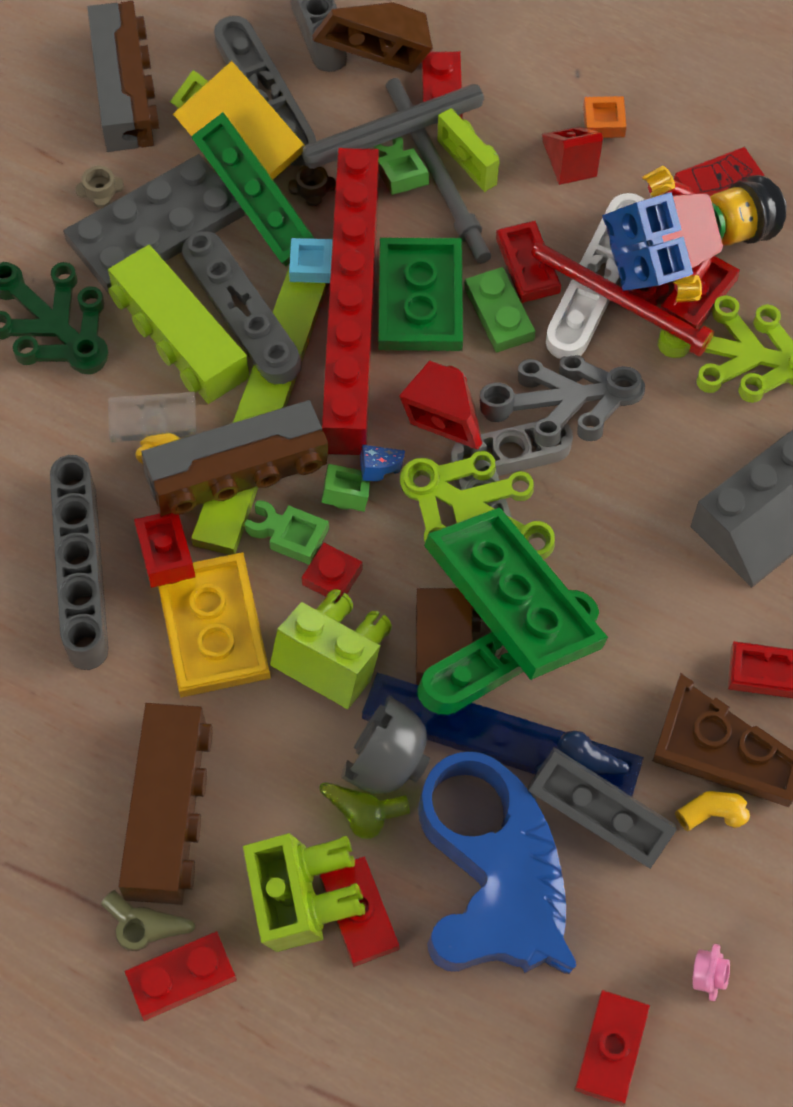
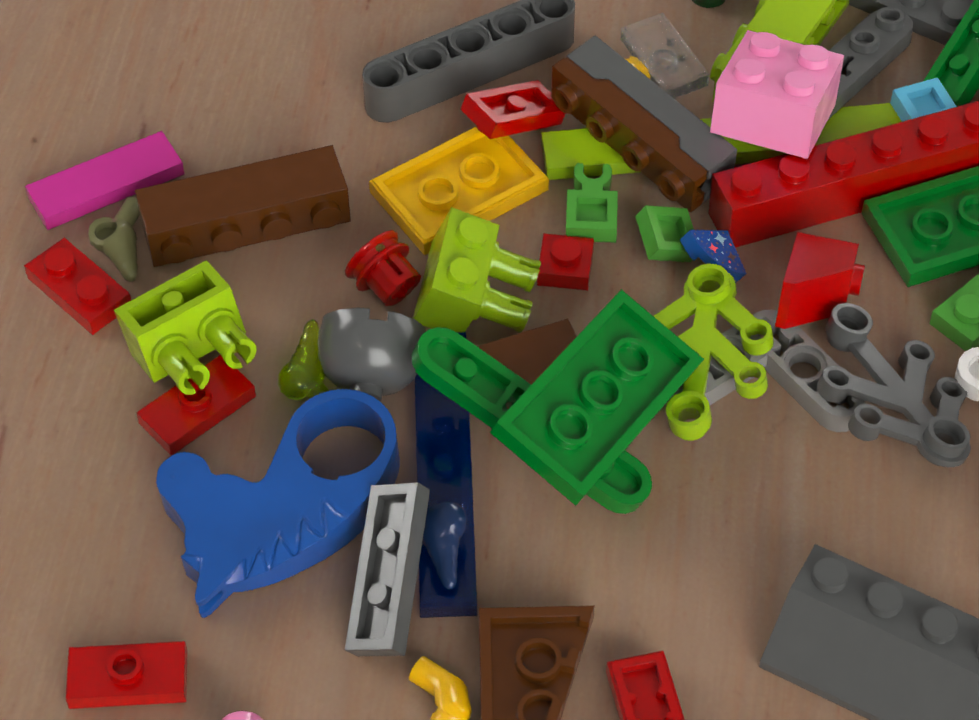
camera: 70 degrees right, 10 degrees down
(65, 917) = (104, 180): none -> dark pink tile
(281, 346) = (776, 93): none -> bright pink brick
(290, 710) = (384, 268): none -> red piece

